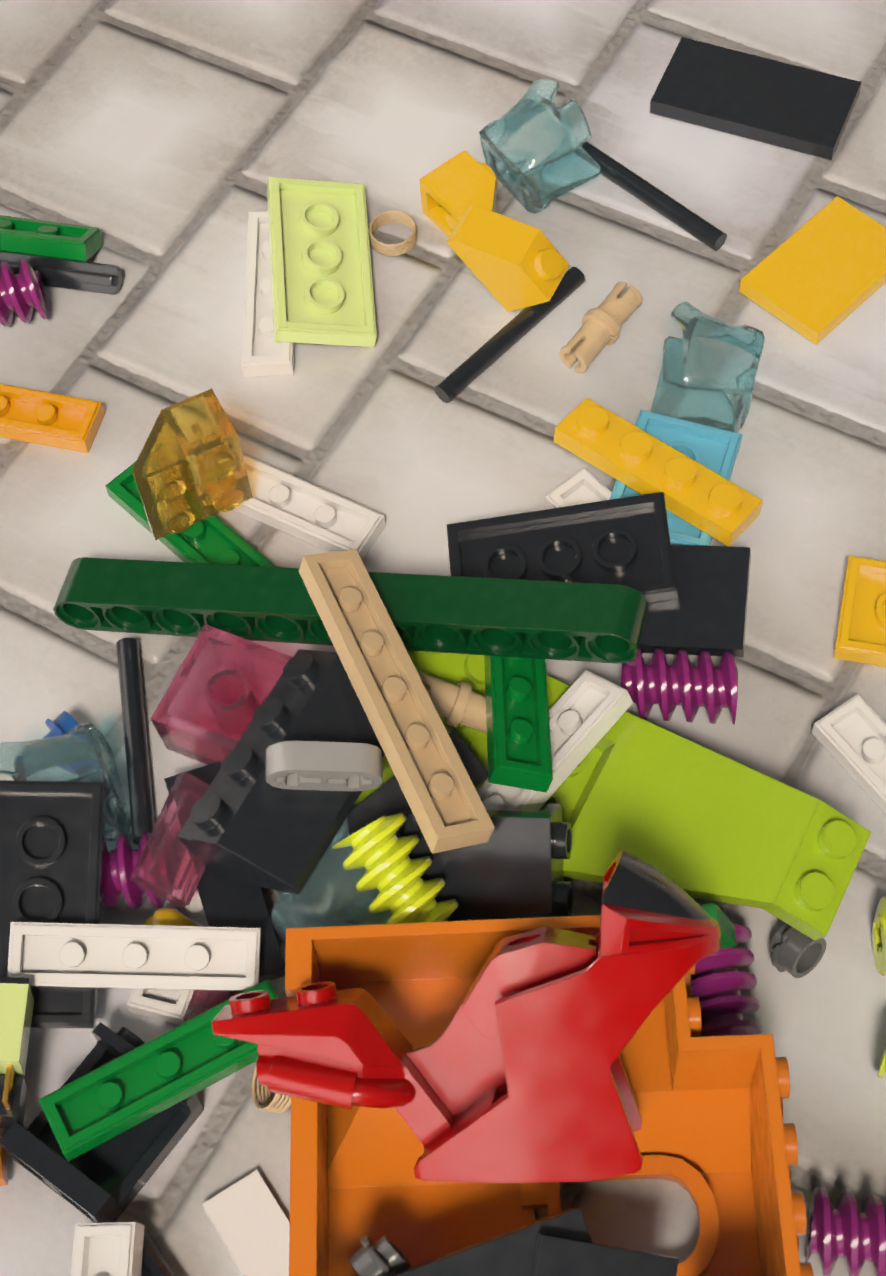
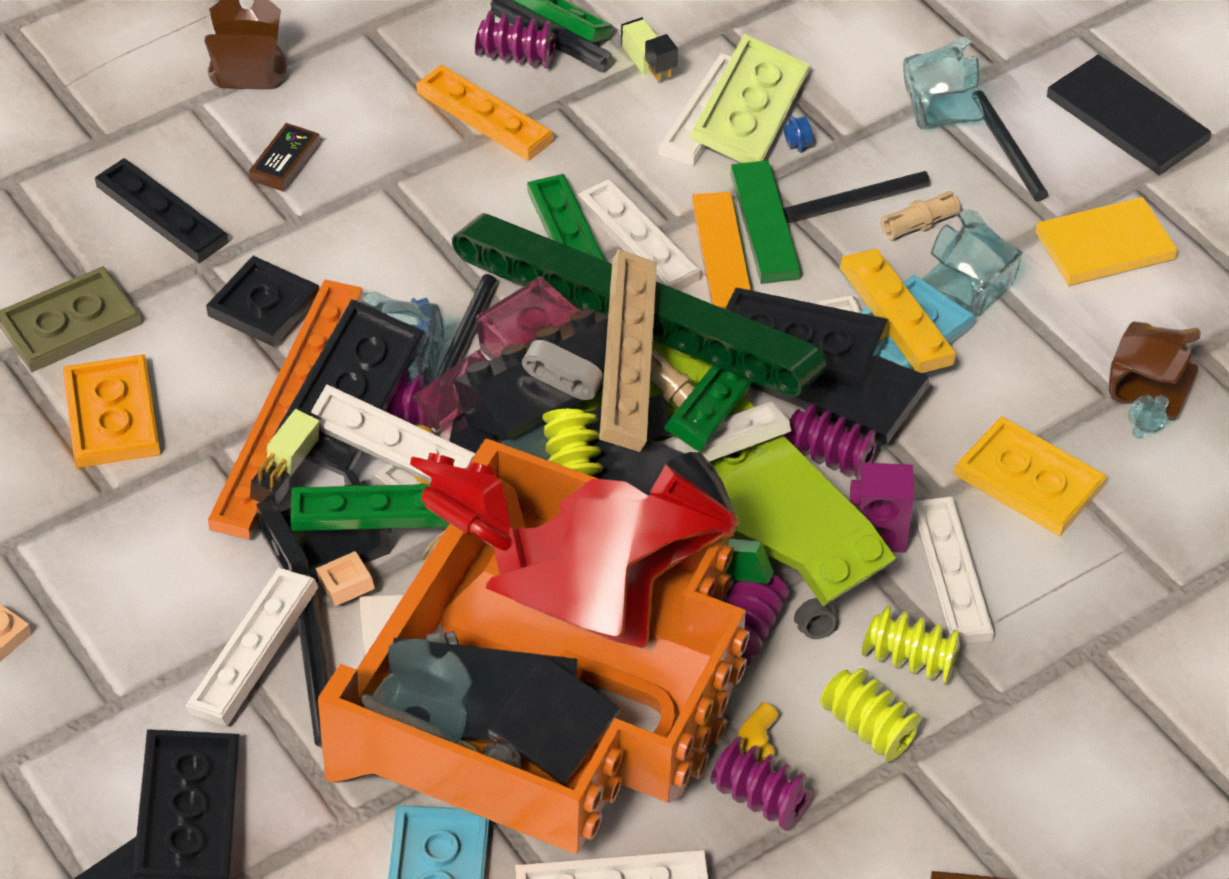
camera: 20 degrees right, 10 degrees down
(159, 244) = (647, 50): none -> piece
(171, 1189) = (345, 578): none -> light nougat plate
(190, 466) = (582, 183): clear yellow slope -> none
(392, 477) = (719, 245): none -> light orange tile
(397, 250) = (812, 94): tan axle -> none
(399, 279) = (798, 133): none -> blue plate
(423, 414) = (765, 222): none -> green tile
(454, 187) = (872, 102): yellow slope -> none
(508, 257) = (876, 143): yellow slope -> none
(806, 748) = (886, 500): none -> magenta brick
(817, 1162) = (755, 729): none -> yellow arm

